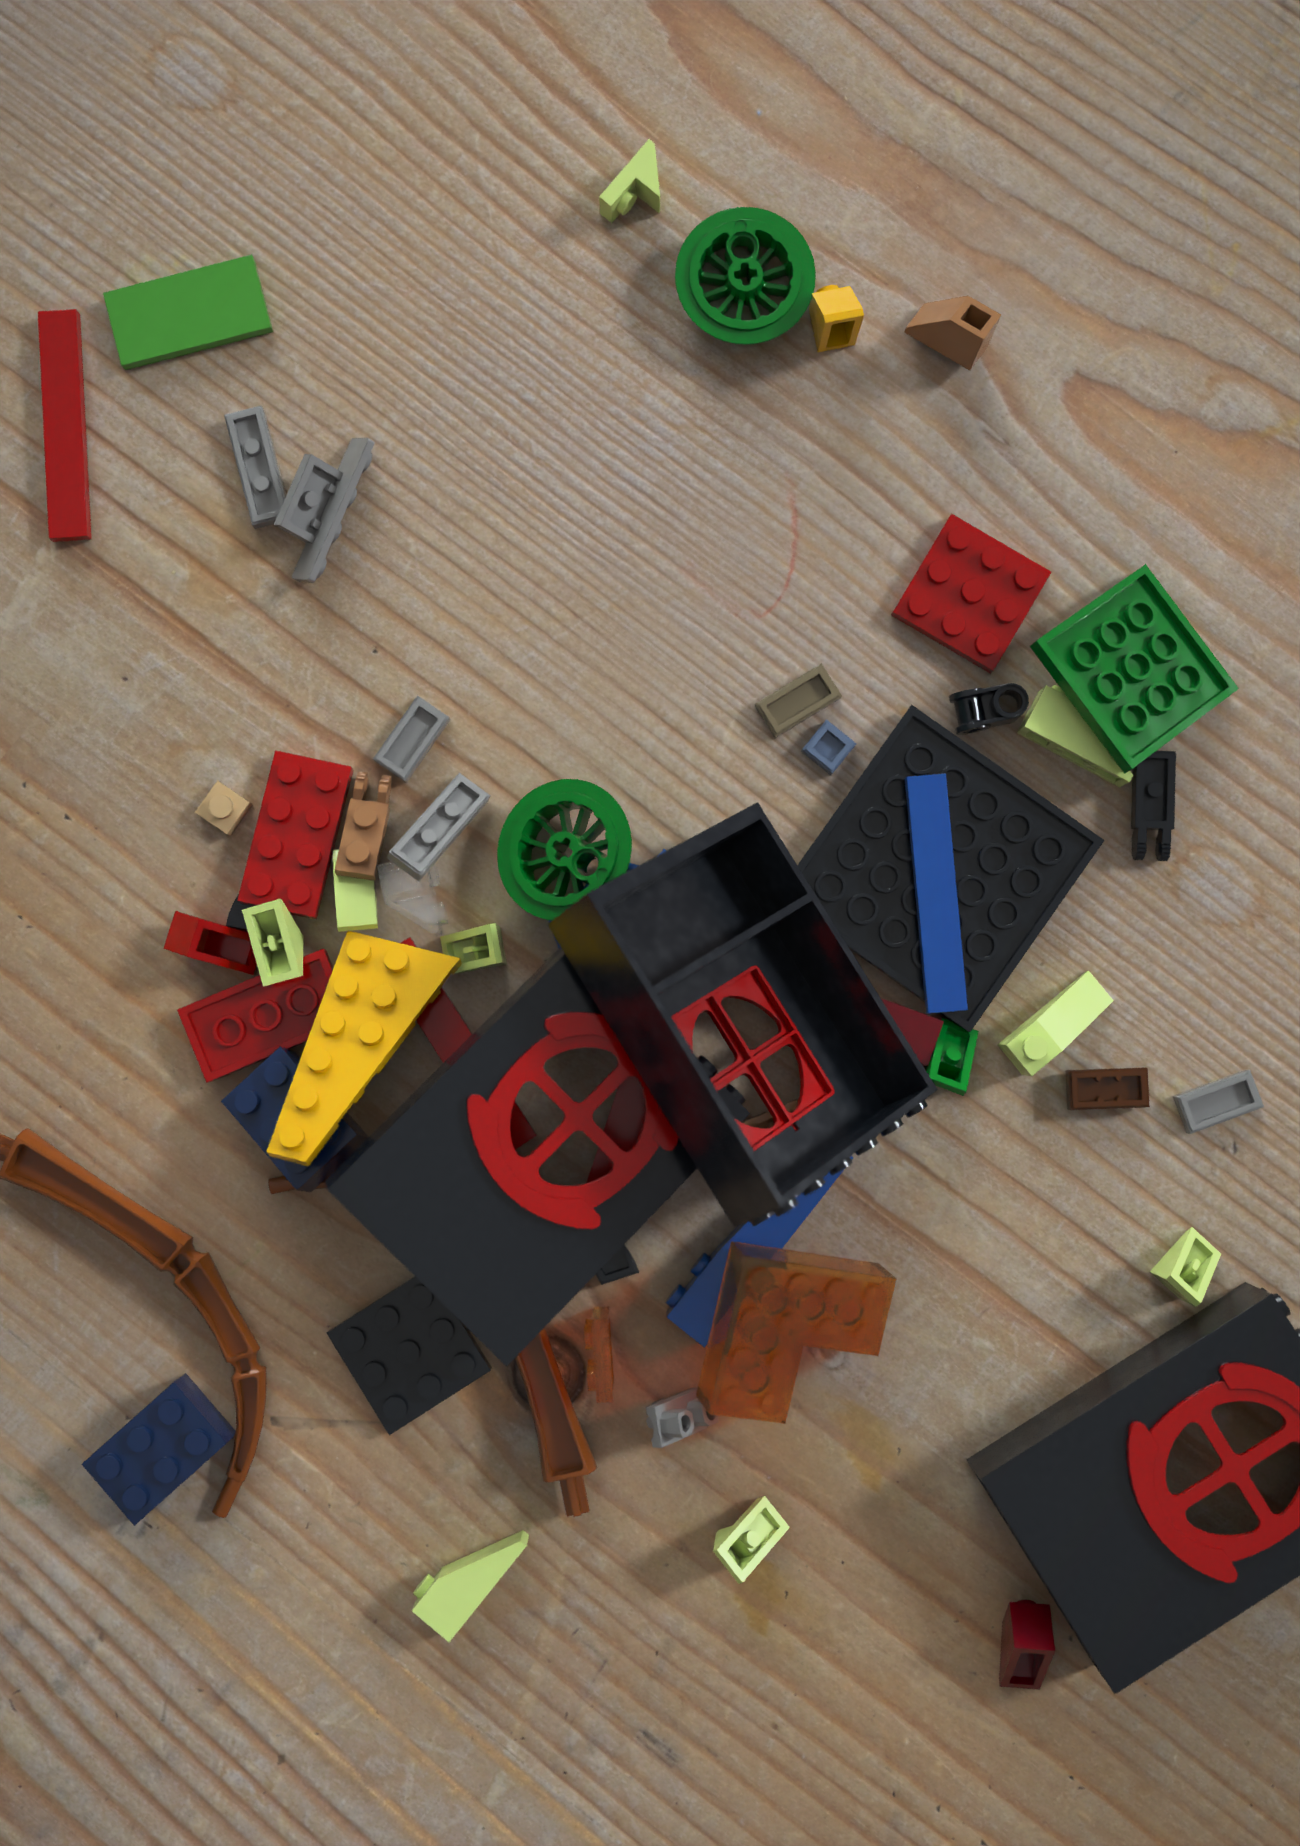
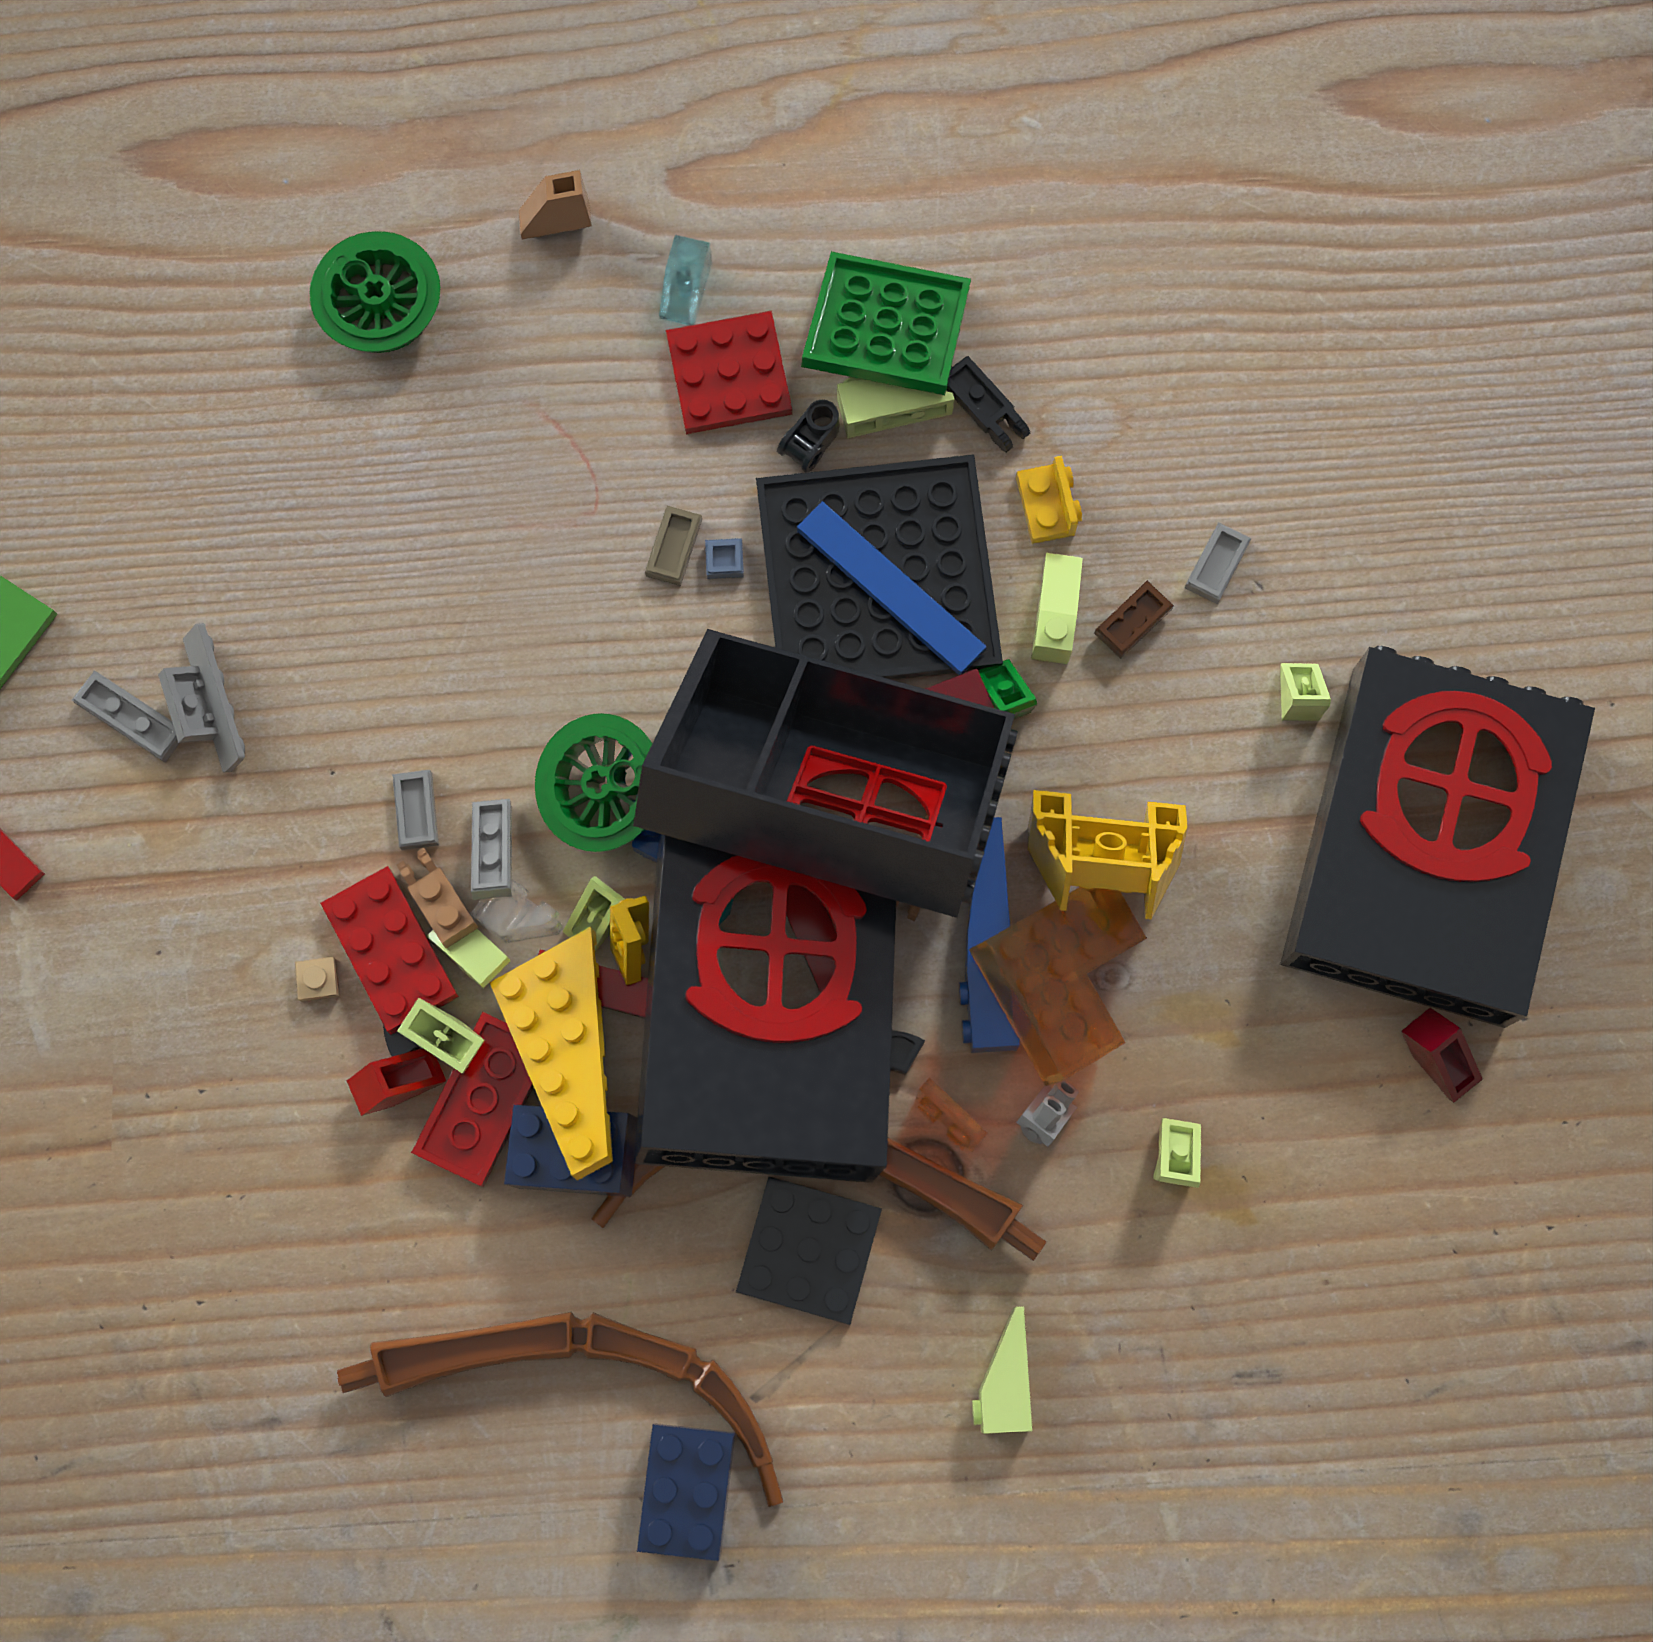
camera: 40 degrees left, 10 degrees down
(486, 985) = (627, 934): none -> yellow bracket
(636, 178) = (238, 293): yellowish green slope -> none
(835, 317) = (465, 267): yellow slope -> none
(903, 1261) = (1105, 851): none -> yellow wedge
(1004, 484) = (685, 280): none -> clear light blue slope
(1130, 931) = (1049, 501): none -> yellow bracket

